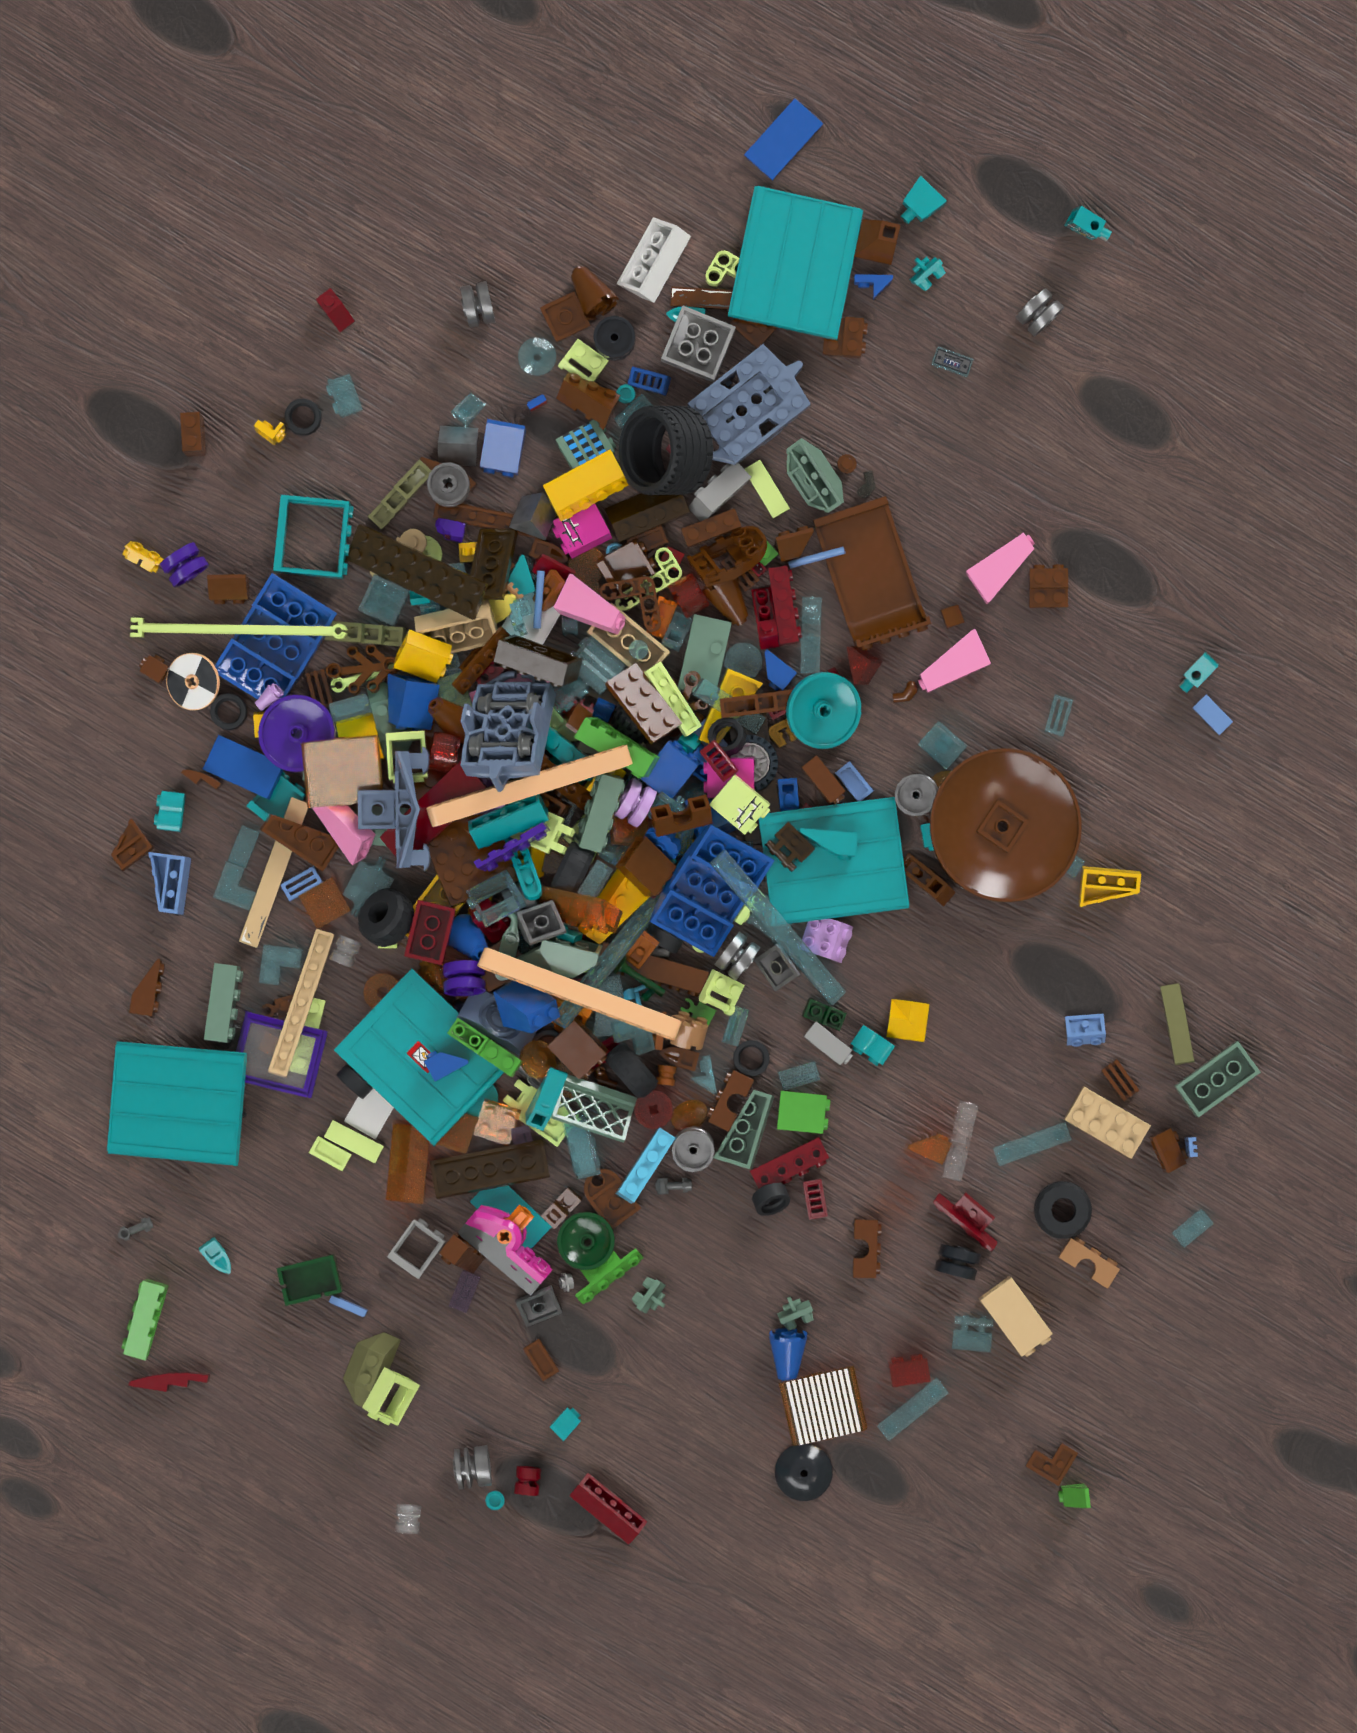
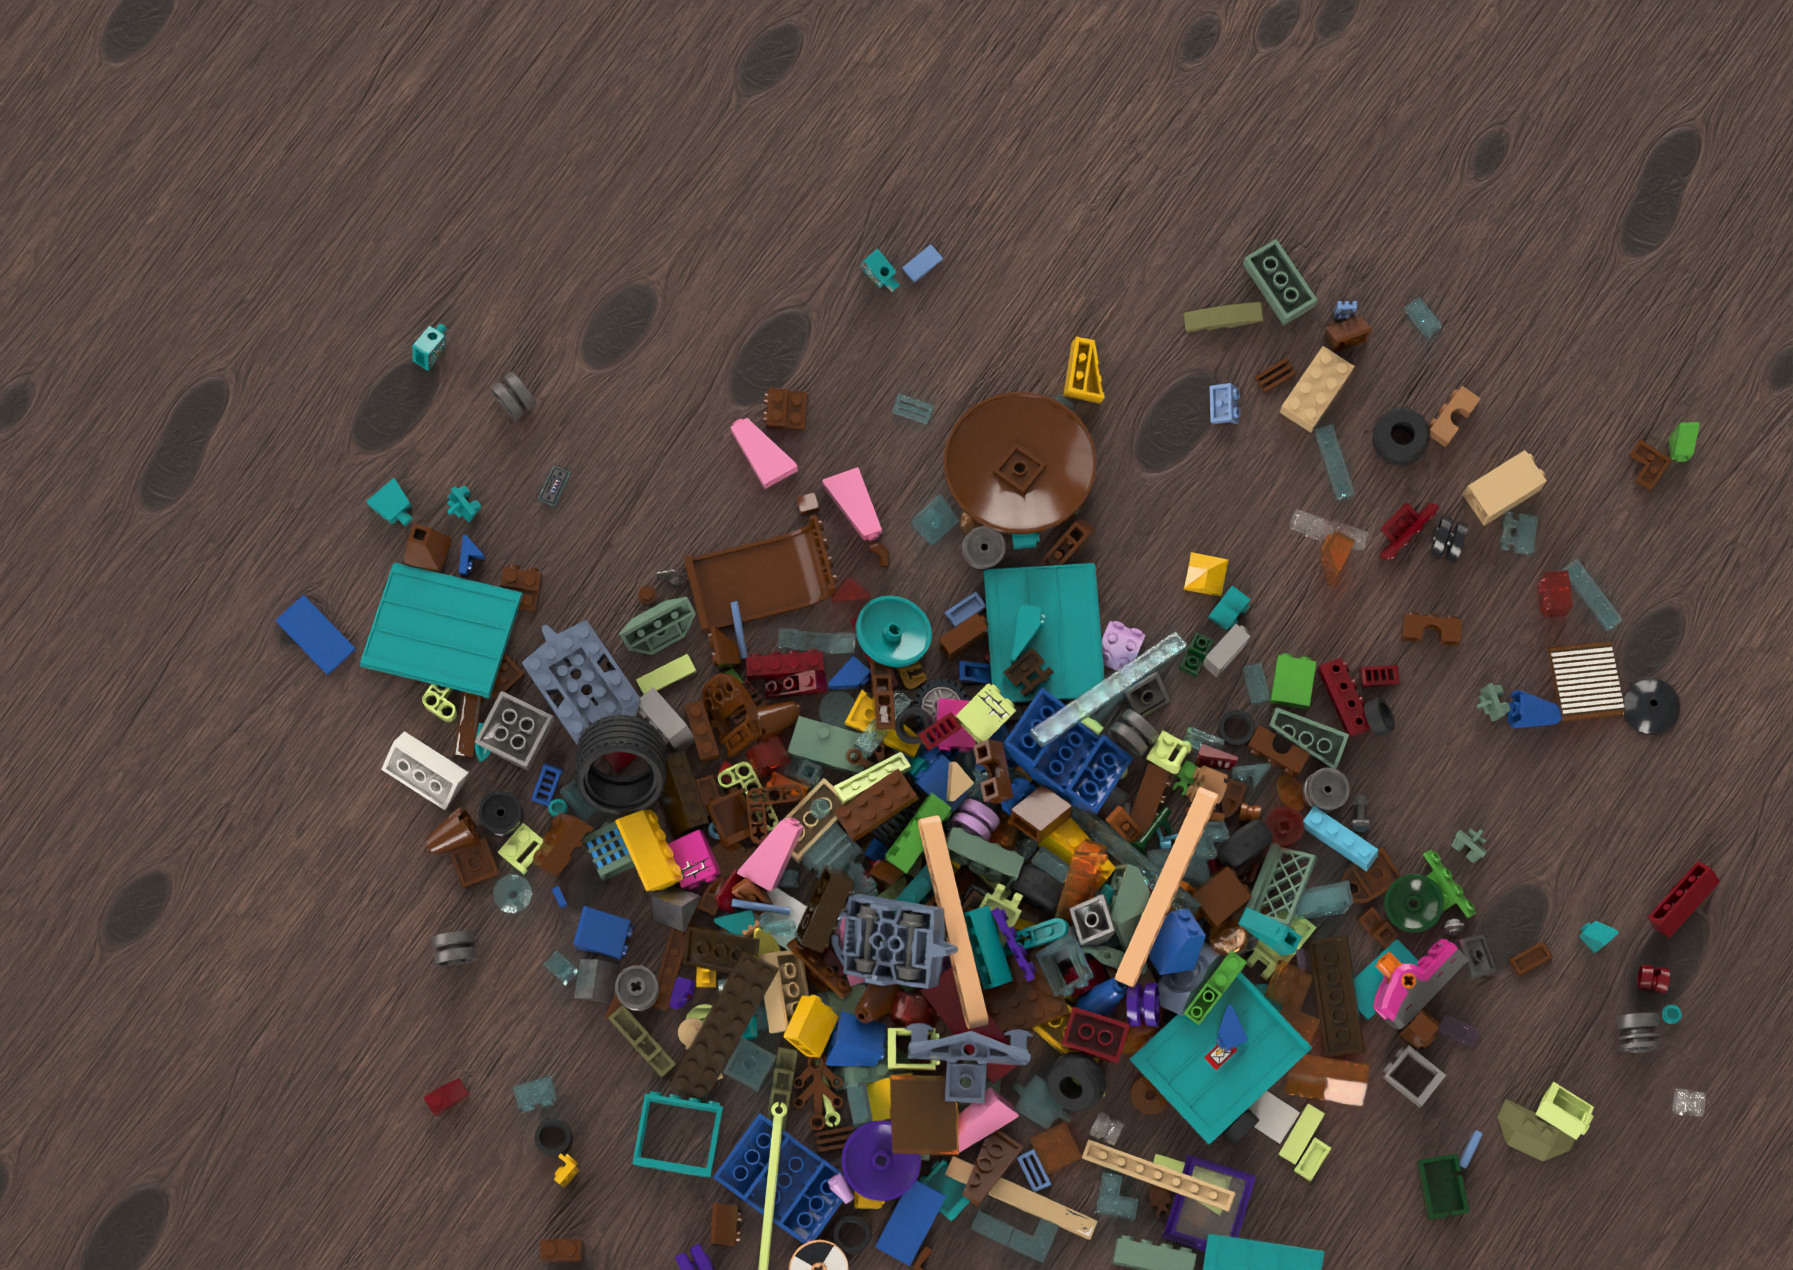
camera: 90 degrees left, 10 degrees down
(669, 782) = (957, 782): none -> tan slope
(719, 1036) = (1215, 758): none -> dark red slope

